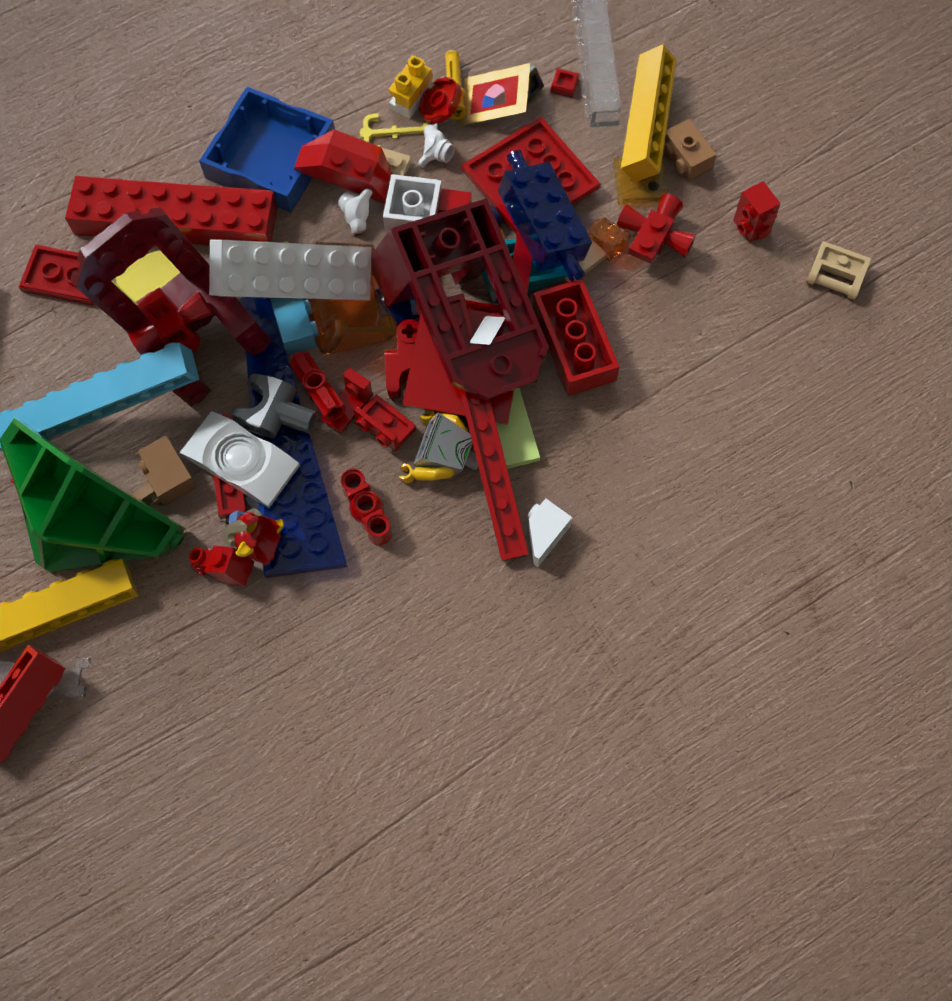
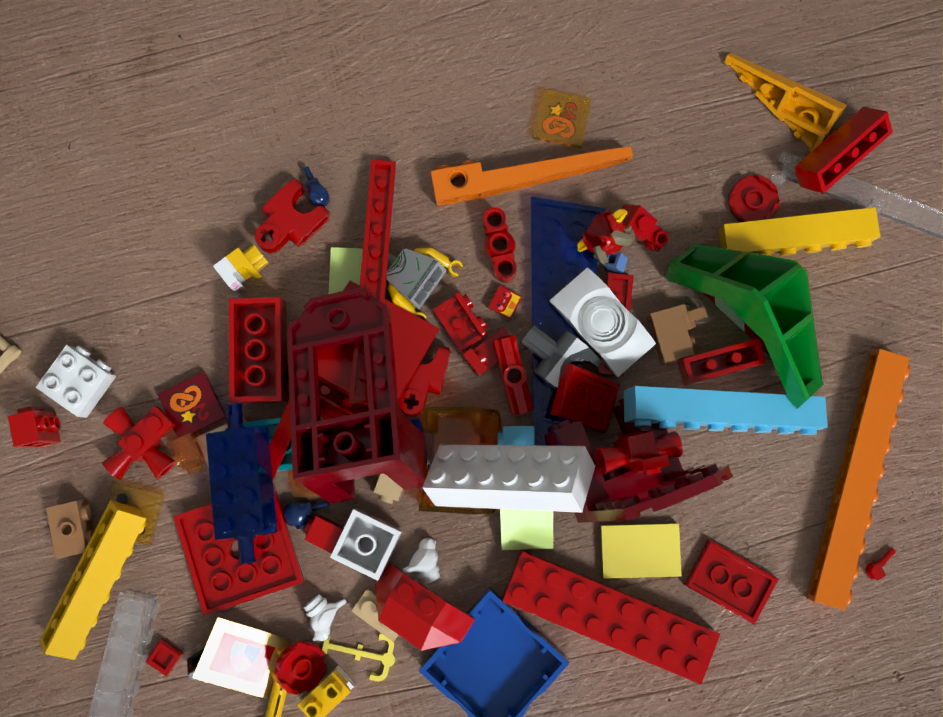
camera: 160 degrees left, 15 degrees up
(65, 751) = (800, 107): none -> light orange wedge
(105, 636) = (753, 199): none -> red tile
(114, 449) = (721, 362): none -> red brick
(238, 377) = (585, 398): none -> red tile
(336, 663) = (562, 118): none -> clear yellow tile
(345, 456) = (504, 302): none -> red tile
(388, 569) = (508, 179): none -> orange piece
(487, 330) = (338, 355): white sticker -> none
(546, 529) = (349, 176): white slope -> none
(573, 504) = (316, 192): none -> dark blue piece
(592, 468) = (285, 222): none -> red piece
(621, 404) = (240, 266): none -> yellow hips
(622, 280) = (192, 405): none -> dark red tile
(738, 265) = (76, 380): none -> white brick

